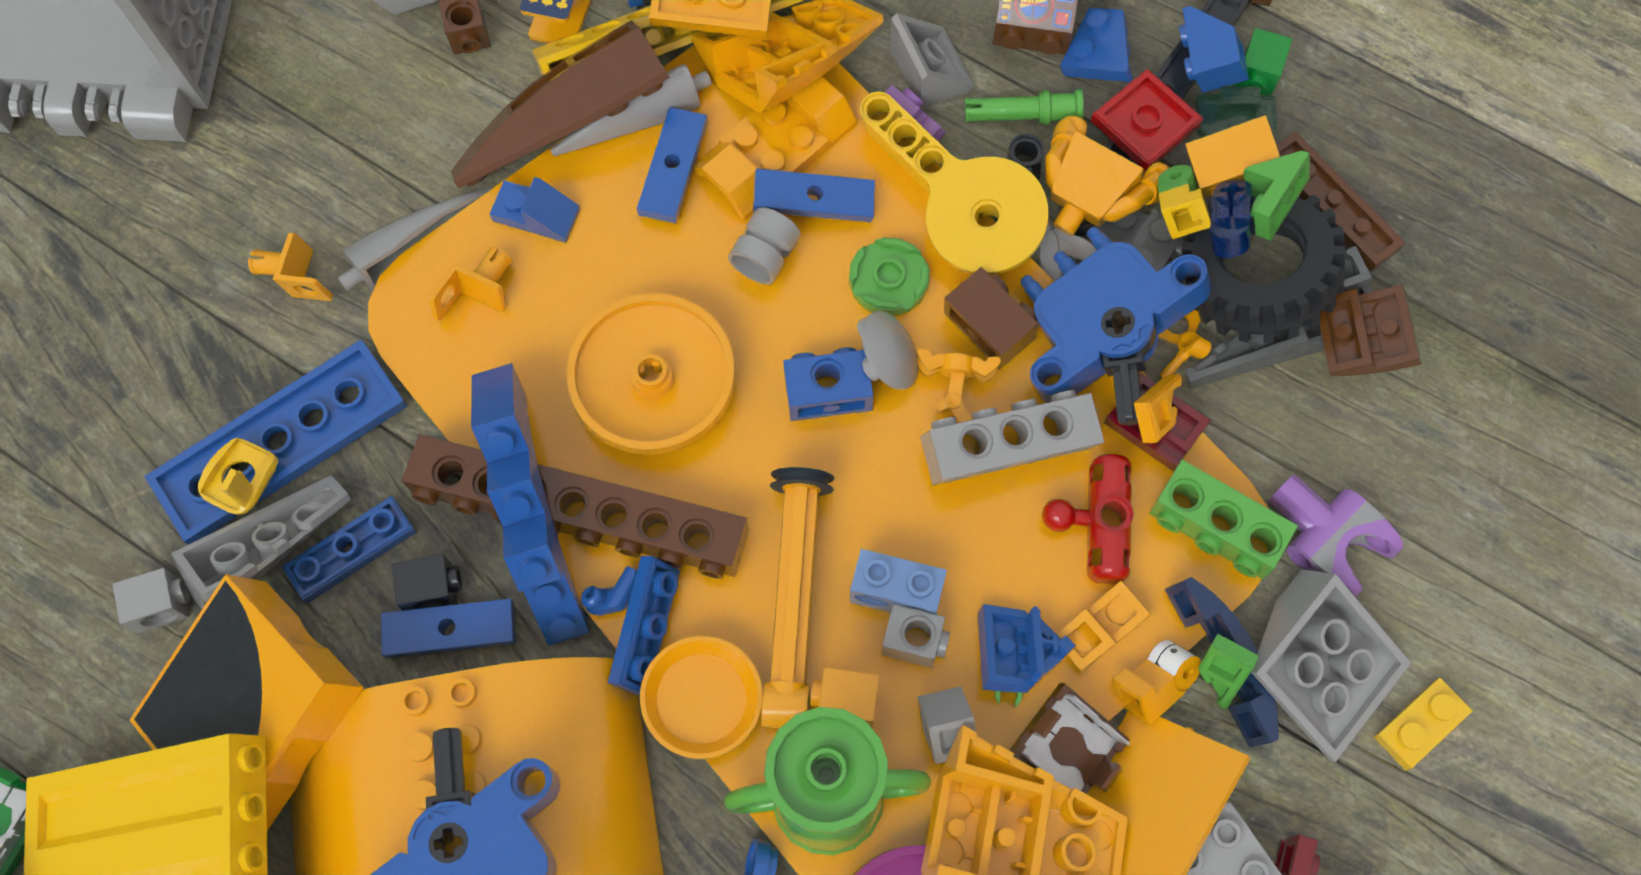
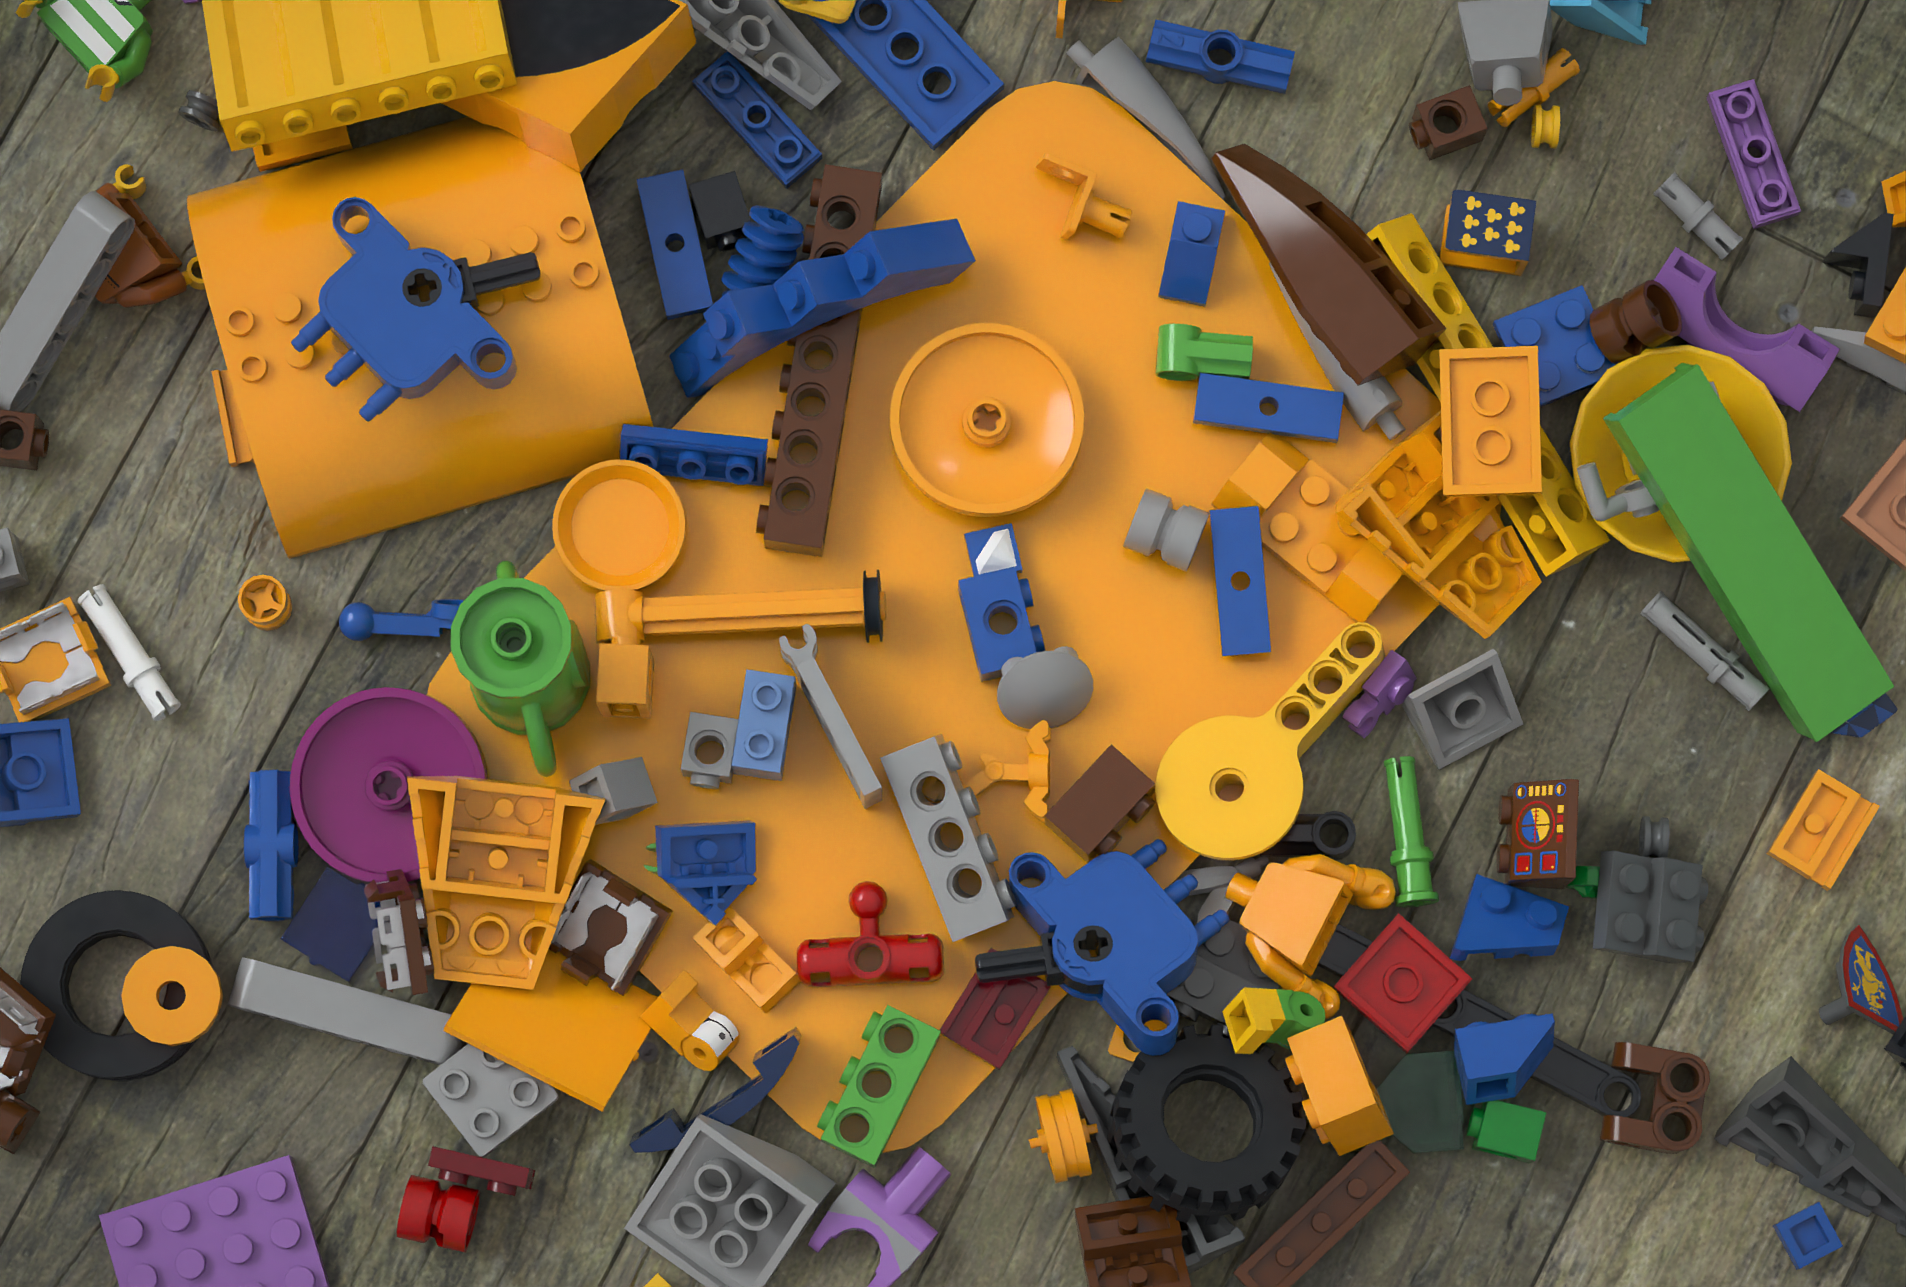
camera: 80 degrees right, 10 degrees up
(365, 193) = (1189, 47): none -> blue piece
(474, 544) = (766, 252): none -> blue piece
(610, 599) = (722, 413): blue arm -> none
(618, 218) = (1188, 351): none -> bright green piece
(764, 387) = (993, 550): none -> tile
(889, 276) = (1152, 684): bright green tile -> none
(899, 521) = (831, 717): none -> light grey tile
(1155, 409) = (996, 999): light orange tile -> none
(1189, 345) = (1104, 1049): light orange hand -> none
(1226, 668) = (707, 1092): bright green tile -> none
(1231, 218) = (1244, 1073): clear blue piece -> none
(1267, 377) = (1063, 1136): none -> light orange wheel
(1276, 189) = (1288, 1131): bright green slope -> none

